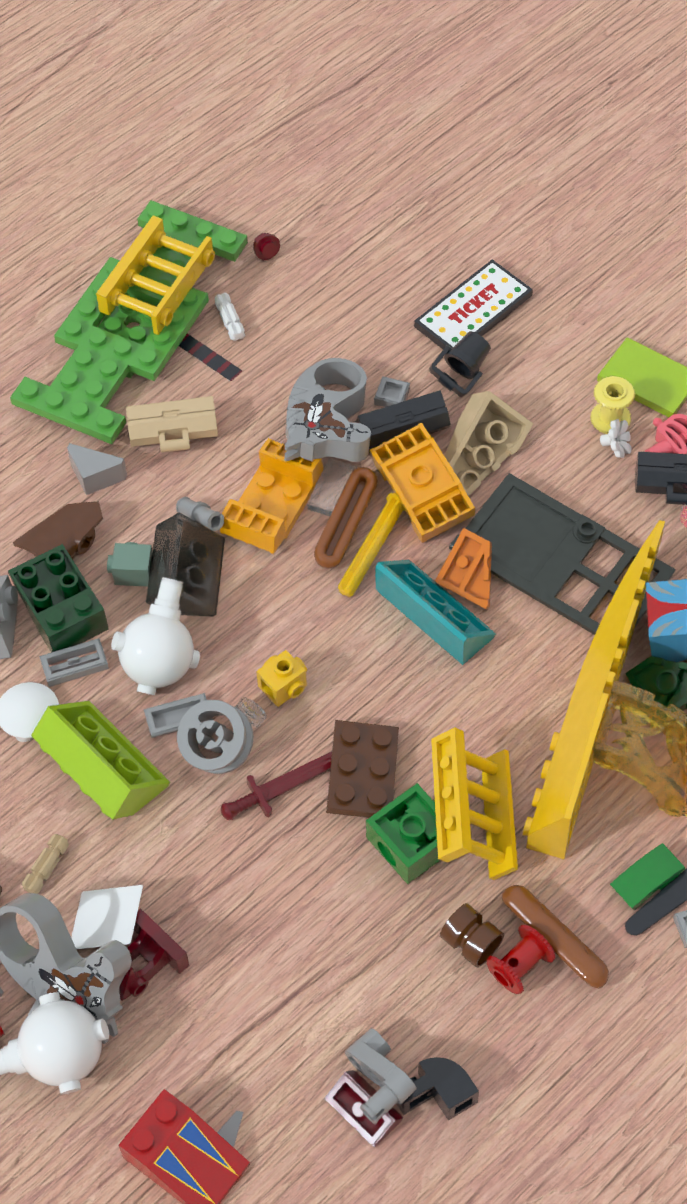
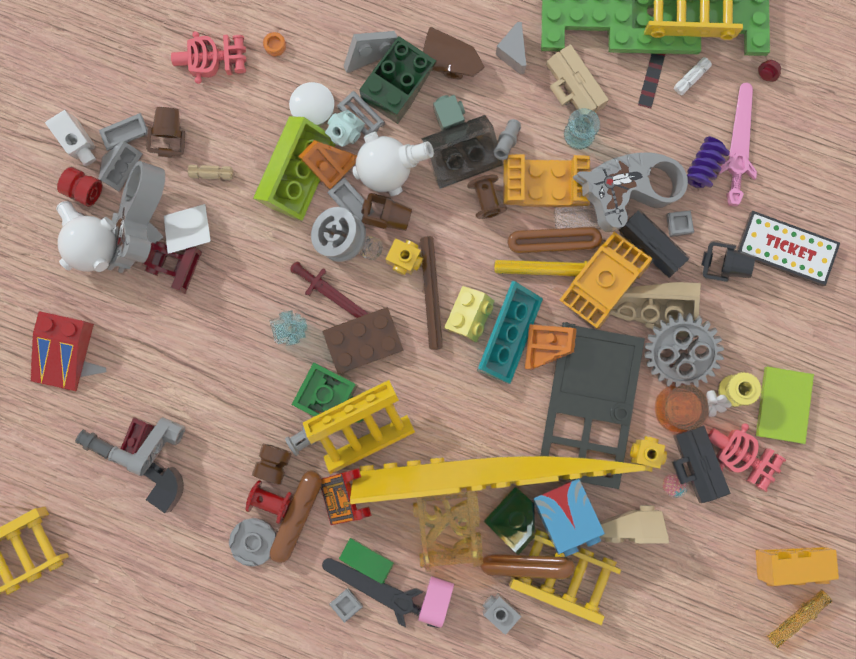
camera: 70 degrees right, 25 degrees up
(76, 669) = (344, 128): none -> light aqua brick
(116, 715) = (327, 162): none -> orange wing
(217, 674) = (393, 214): none -> reddish brown piece
(230, 429) = (581, 128): none -> clear light blue hose
(256, 563) = (487, 198): none -> reddish brown hose
(303, 844) = (280, 328): none -> clear light blue brick
(335, 1163) = (93, 443): none -> dark grey pin
(337, 336) = (706, 162): none -> dark purple piece
(348, 673) = (431, 293): none -> reddish brown axle
(351, 314) = (739, 150): none -> bright pink sword
(388, 639) = (470, 313): none -> light yellow bracket
(456, 890) = (294, 443): none -> light grey bush
(520, 447) = (666, 339): none -> light grey gear
(555, 866) = (336, 495): none -> flag
(564, 1009) = (252, 541): none -> light grey tile
(608, 466) = (681, 408): none -> clear orange hat
(643, 517) = (639, 453): none -> yellow brick

